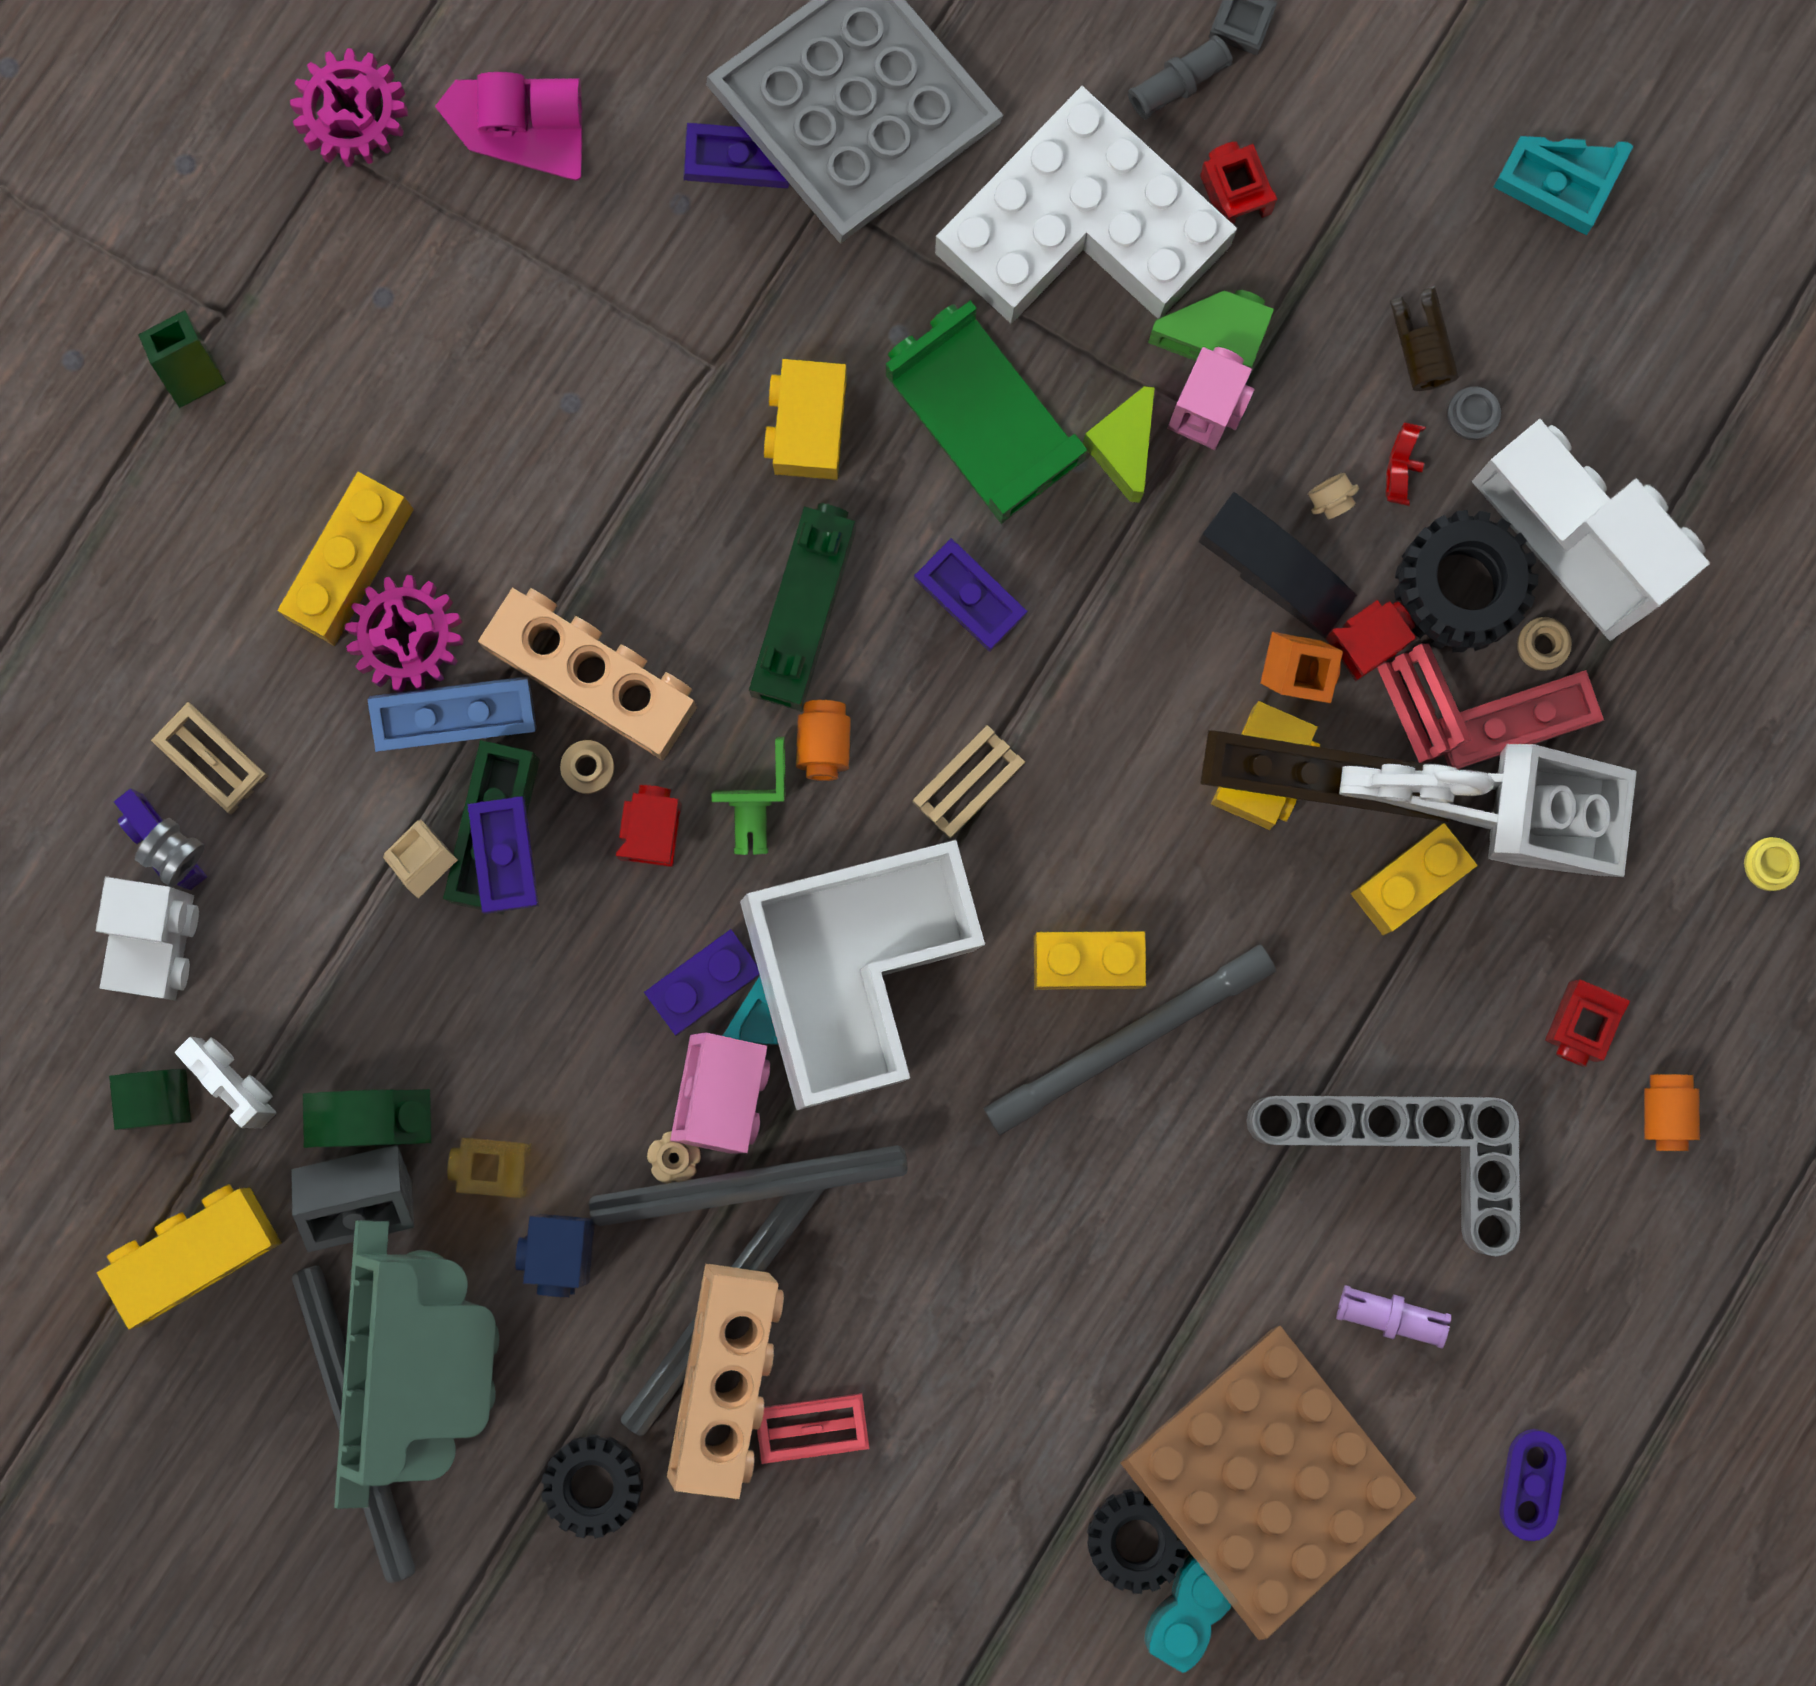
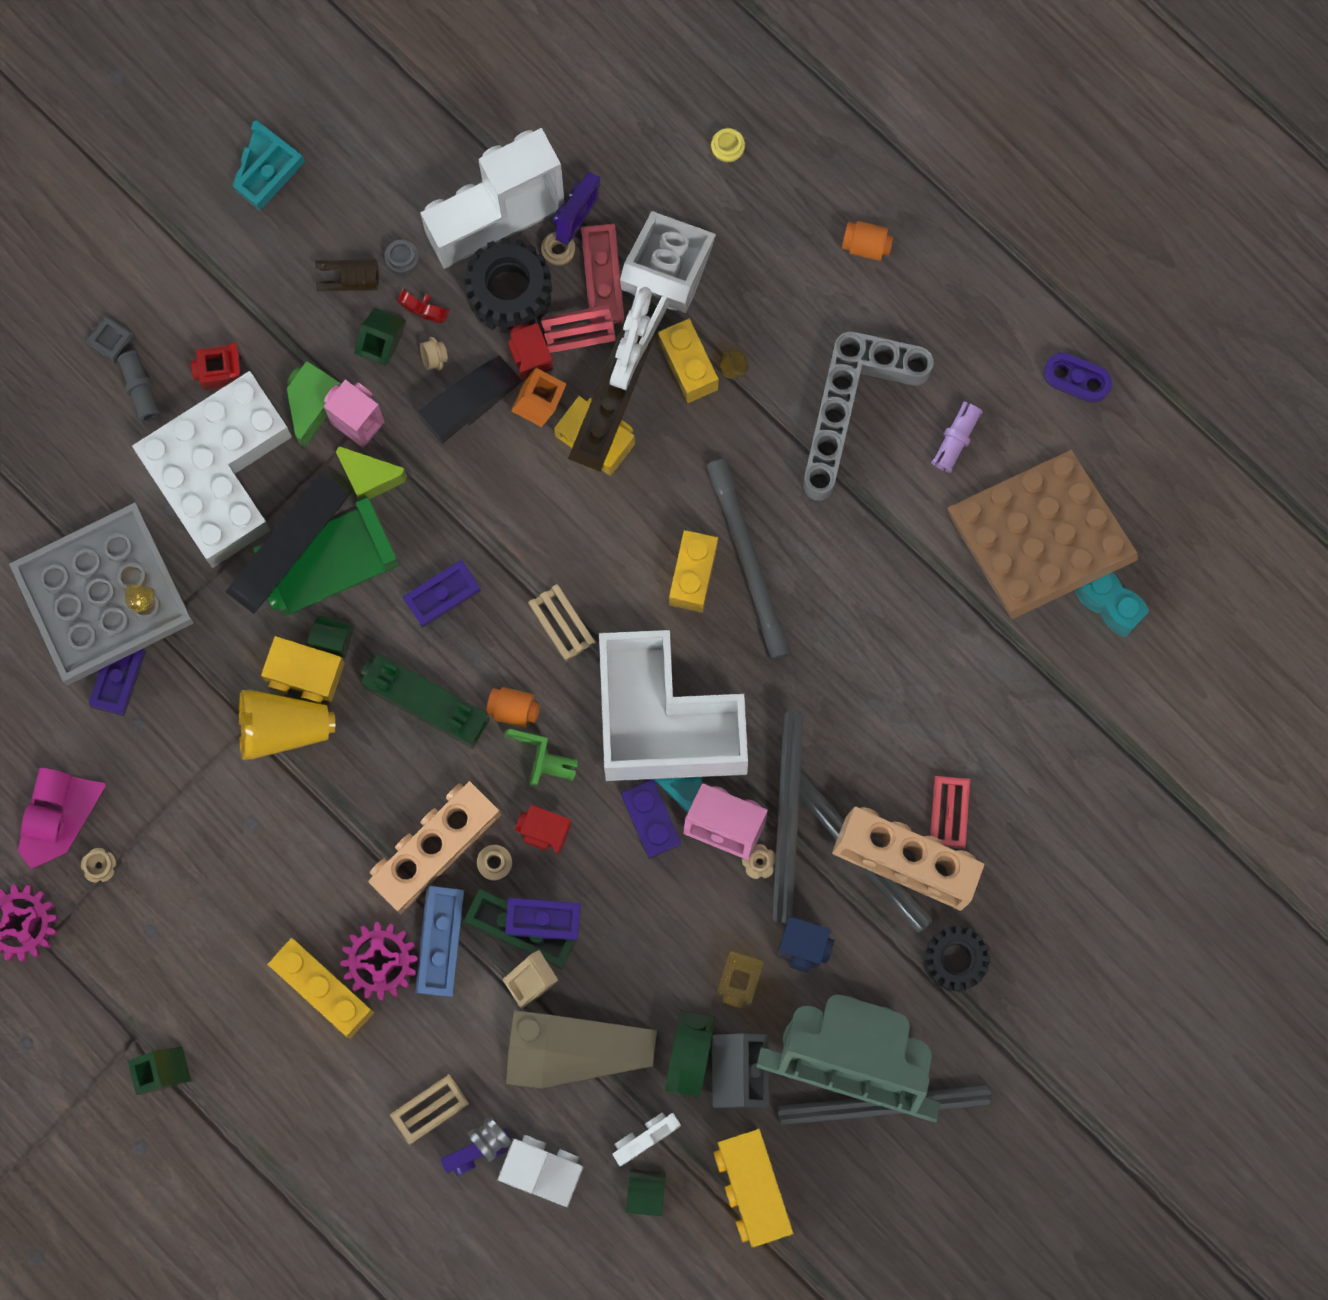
camera: 75 degrees left, 5 degrees down
(335, 932) = (566, 1050): none -> dark tan wedge
(455, 186) = (89, 863): none -> tan plate
(719, 406) = (280, 723): none -> yellow cone
(853, 152) = (139, 597): none -> clear yellow hinge
(870, 448) = (331, 636): none -> dark green brick
(992, 350) = (289, 541): none -> black beam
(1122, 1572) = (1062, 646): black tyre -> none
(1341, 410) = (379, 336): none -> dark green brick
(1436, 944) = (733, 364): none -> clear yellow hinge
(1585, 996) = (785, 282): red window -> none
(1623, 660) = (581, 201): none -> dark purple plate

